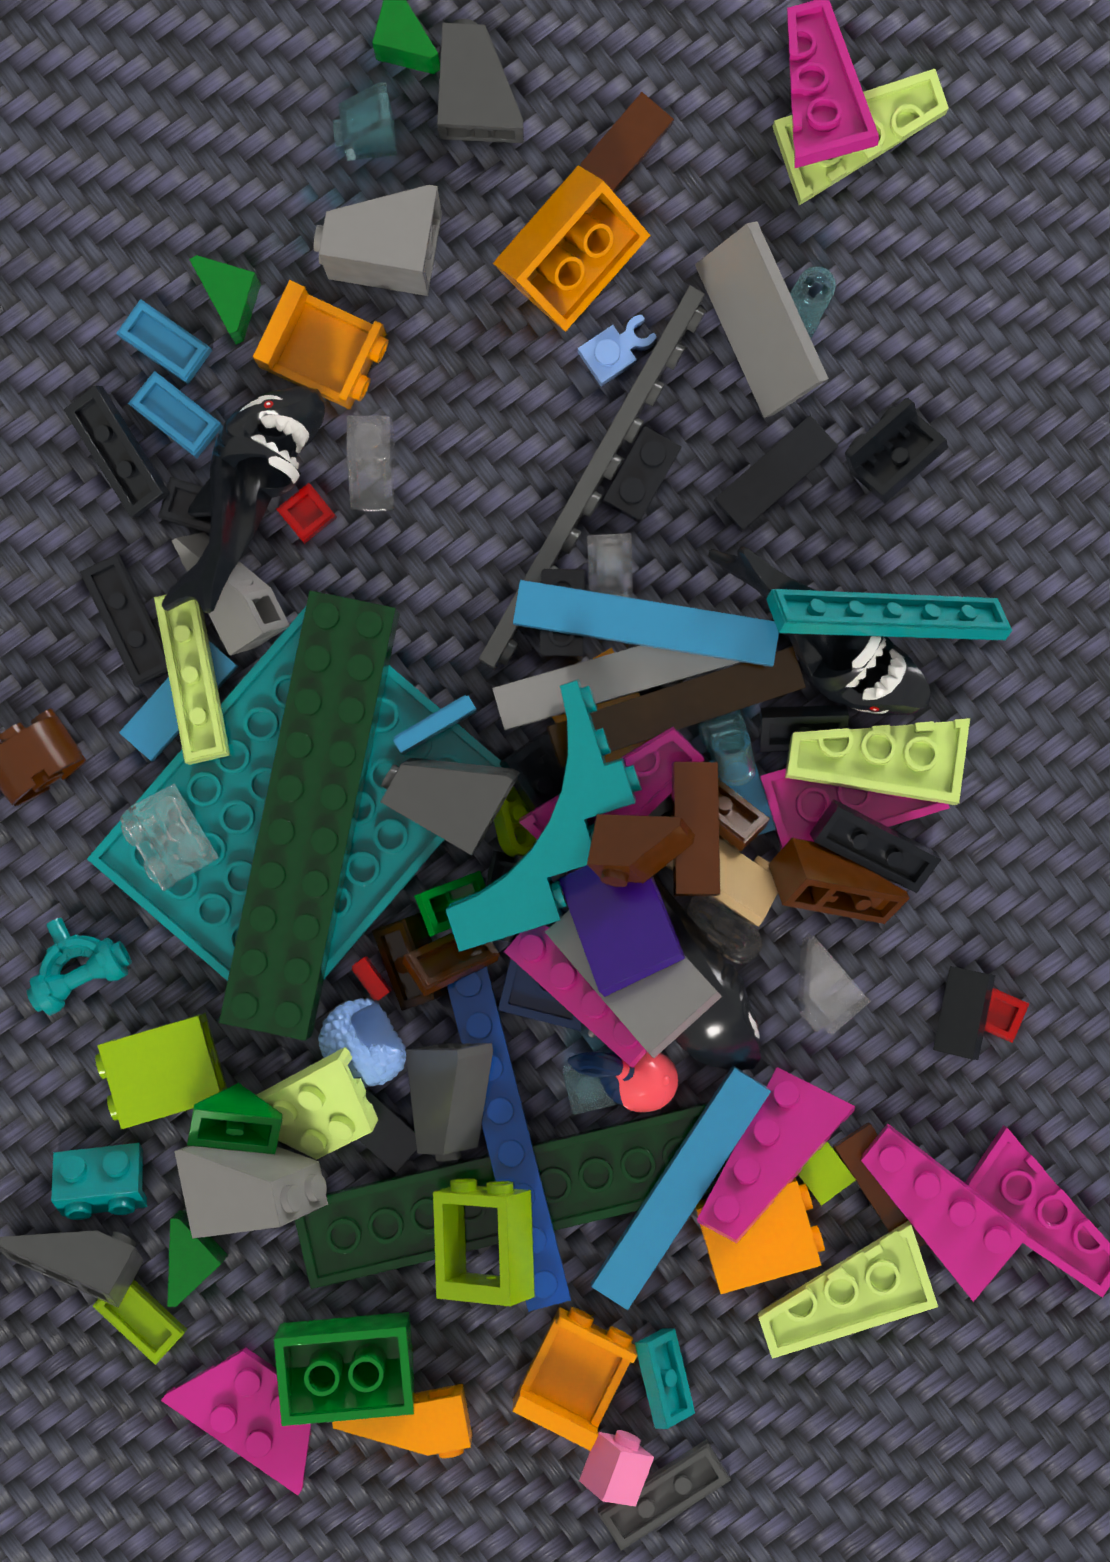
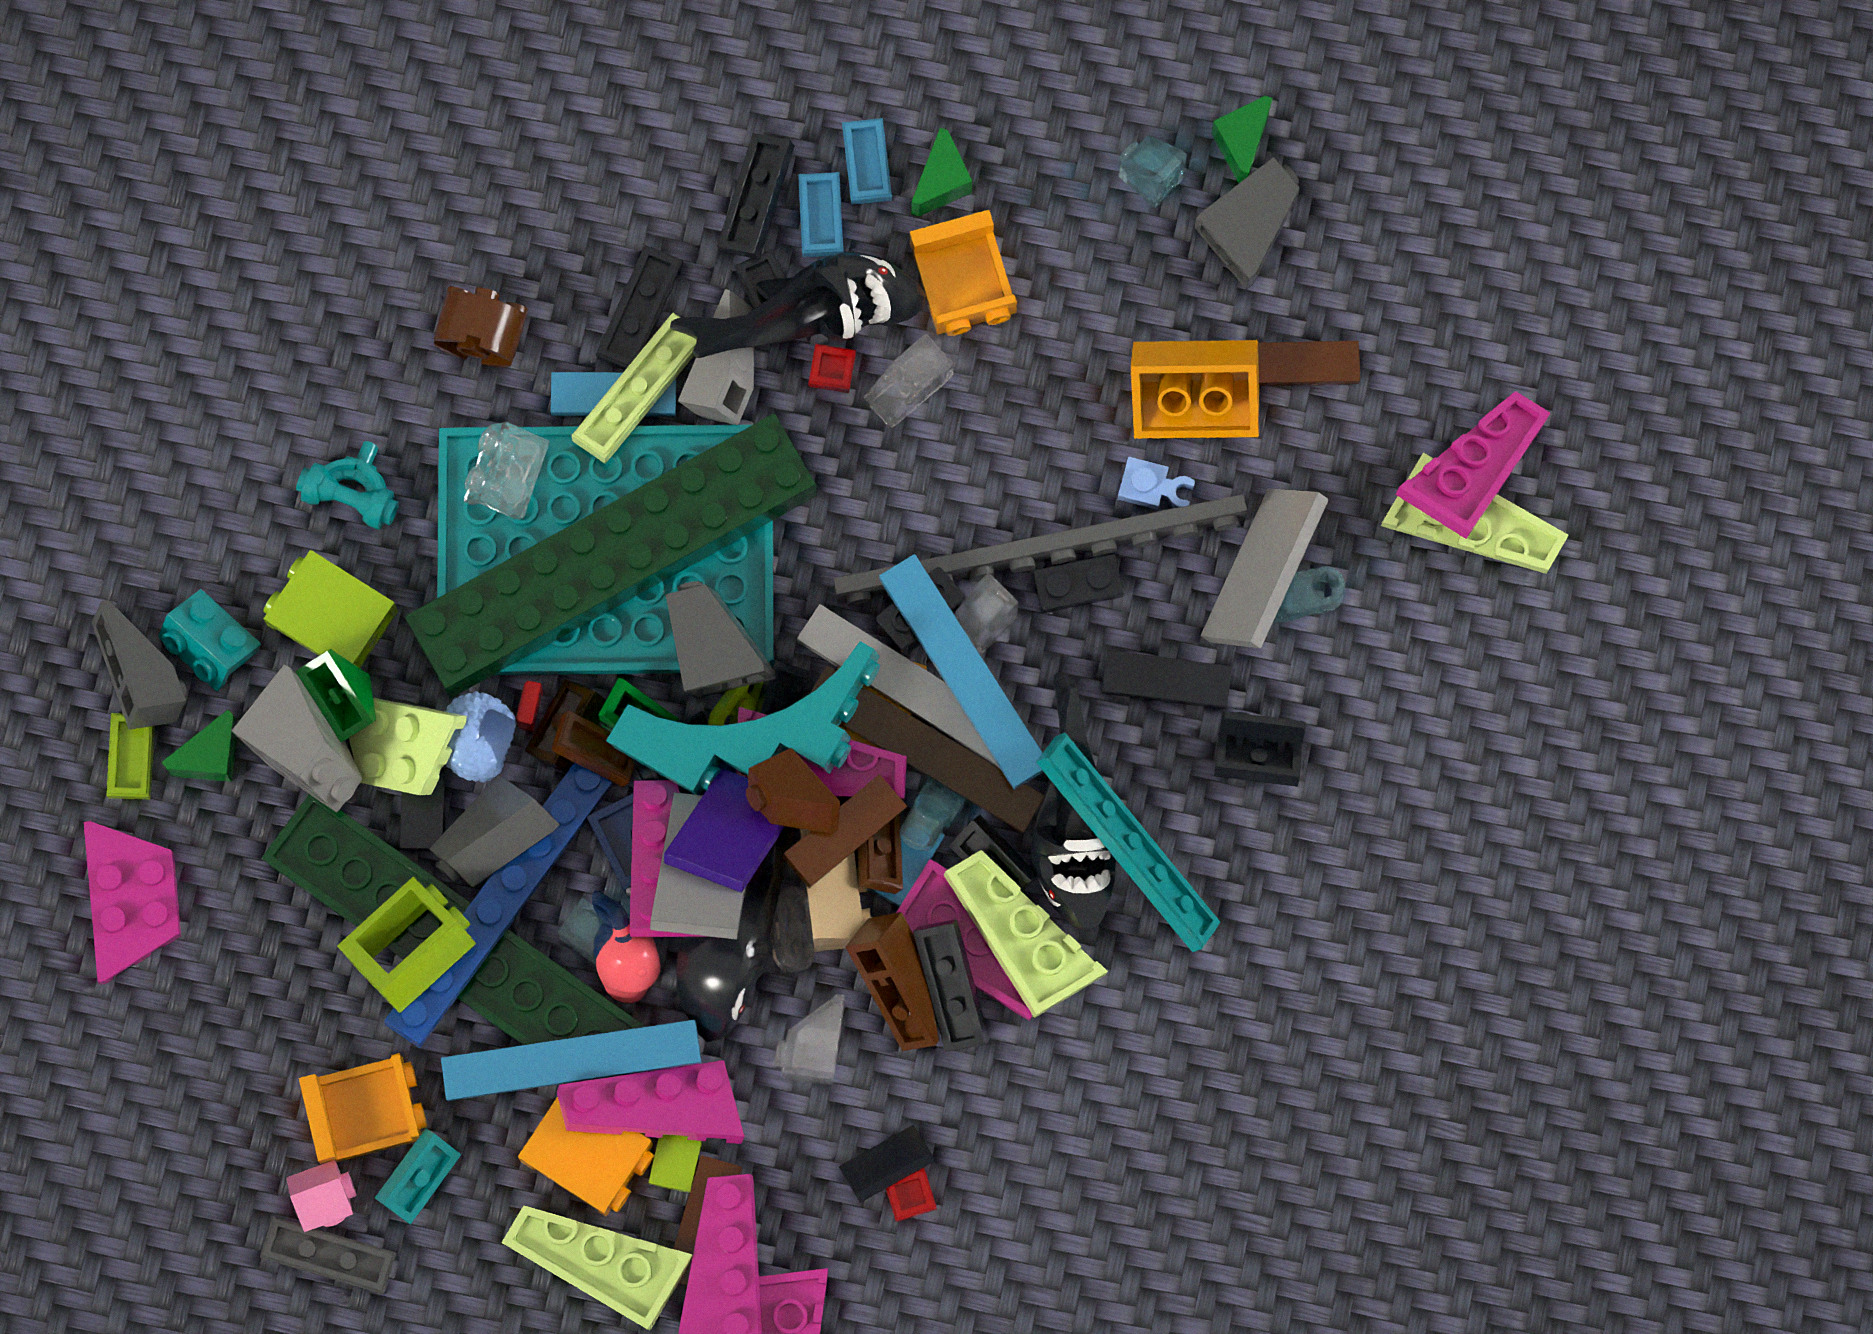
camera: 50 degrees right, 10 degrees down
(345, 1368) = (224, 931): green slope -> none
(383, 241) = (1078, 252): light grey slope -> none
(434, 724) = (756, 587): dark azure tile -> none
(436, 1427) = (231, 1025): light orange slope -> none

